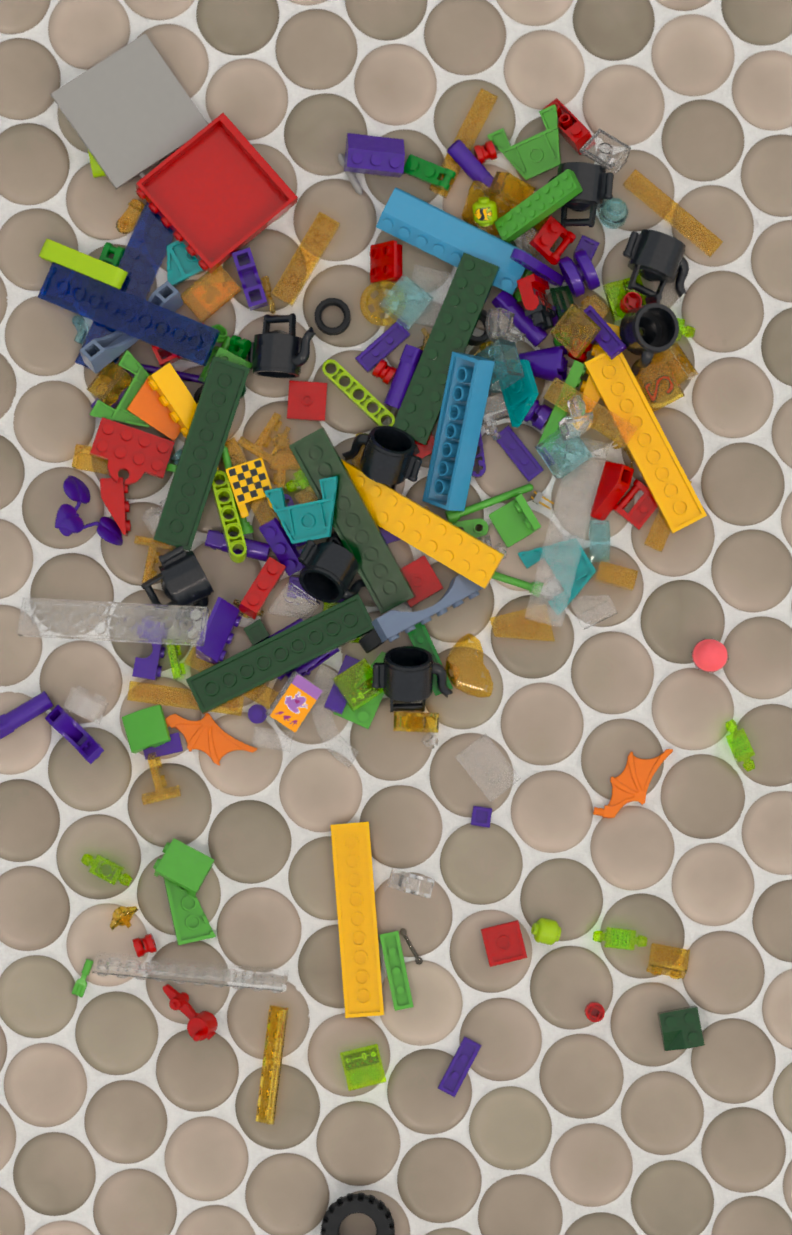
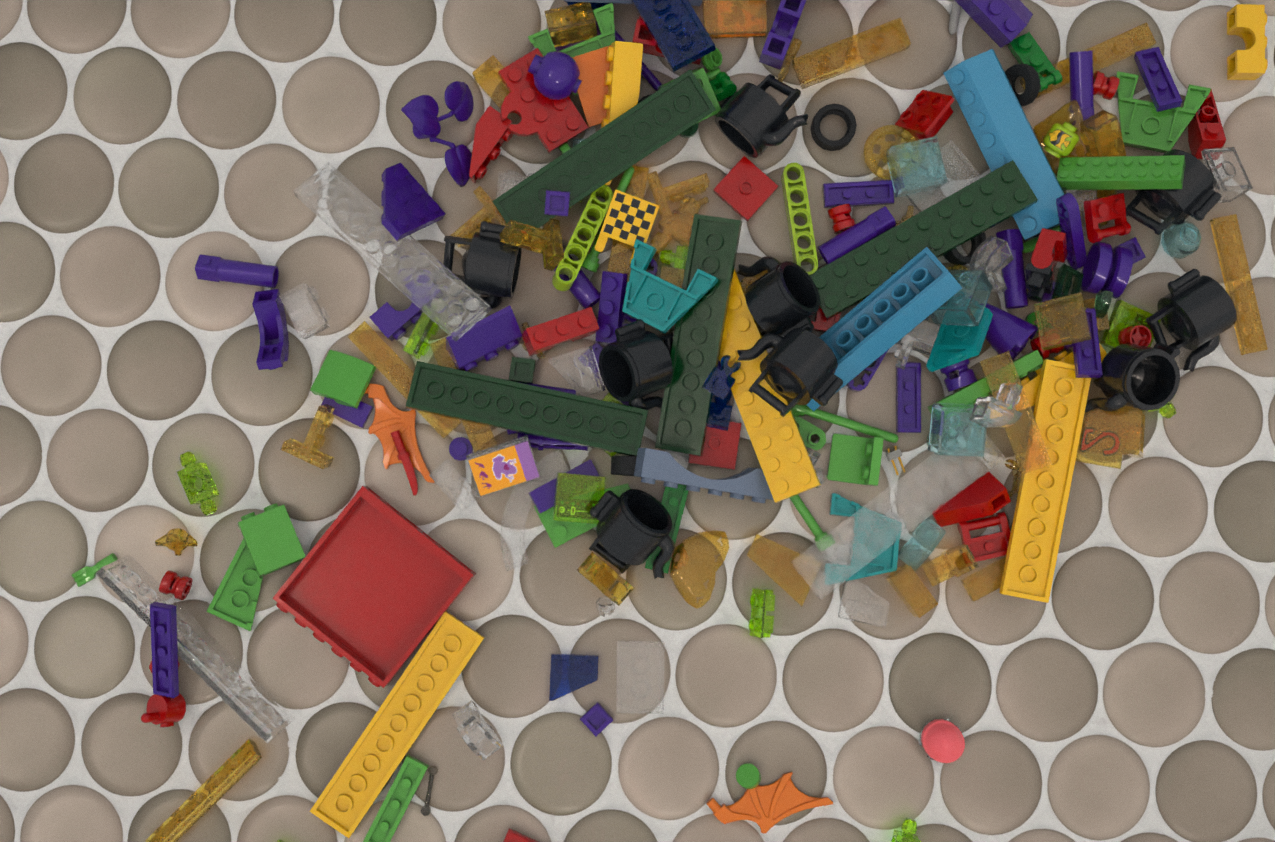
camera: 35 degrees right, 0 degrees up
(97, 583) = (406, 203): none -> dark purple plate
(129, 426) = (555, 75): none -> dark purple brick
(174, 985) = (164, 649): none -> dark purple tile
(196, 508) = (557, 203): none -> dark purple tile
(207, 538) = (543, 241): none -> clear yellow bracket
(225, 747) = (404, 456): none -> red piece
(272, 845) = (373, 587): none -> red panel
(389, 539) = (720, 380): none -> clear blue plate
(404, 558) = (720, 413): none -> clear blue plate
(430, 494) = (796, 368): none -> black piece
(436, 189) = (1032, 82): none -> black tyre
(442, 800) = (571, 673): none -> clear blue wing
(516, 122) = (1157, 79): none -> dark purple plate
(527, 659) = (759, 623): none -> clear neon green hinge
(547, 37) = (1248, 23): none -> yellow arch
(592, 298) = (1102, 303): none -> clear green tile
(605, 775) = (748, 776): none -> bright green tile
(626, 541) = (949, 564): none -> clear yellow brick

